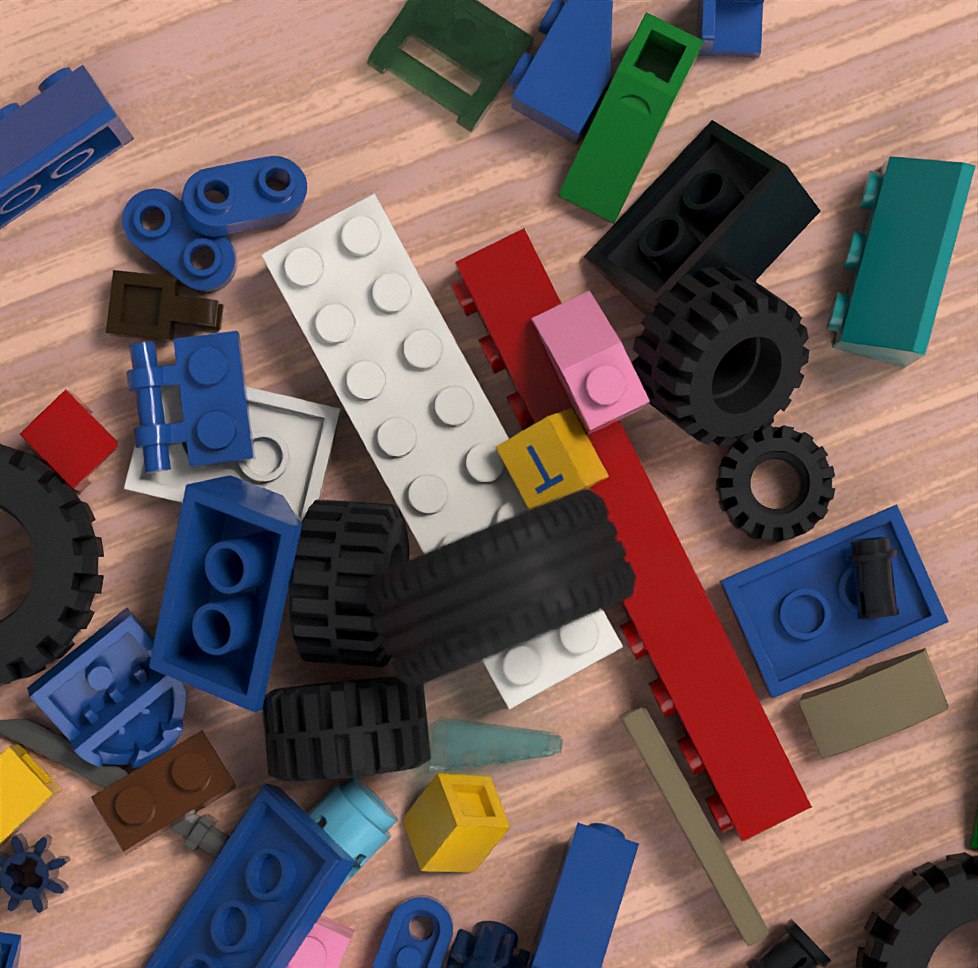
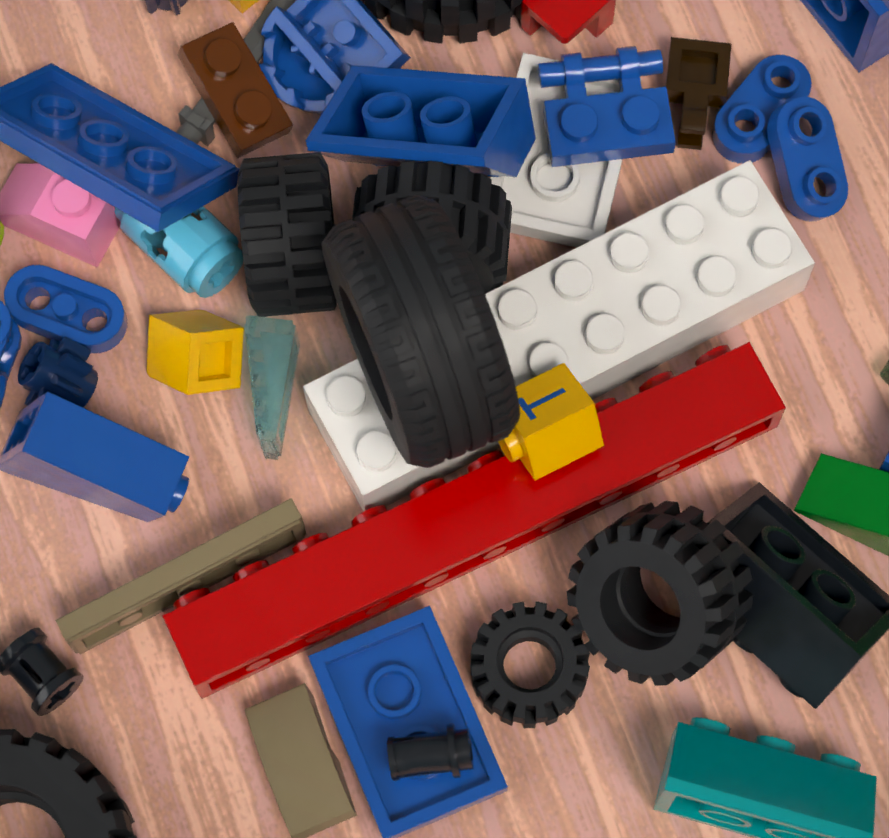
camera: 90 degrees right, 15 degrees down
(590, 362) = (646, 461): bright pink slope -> none

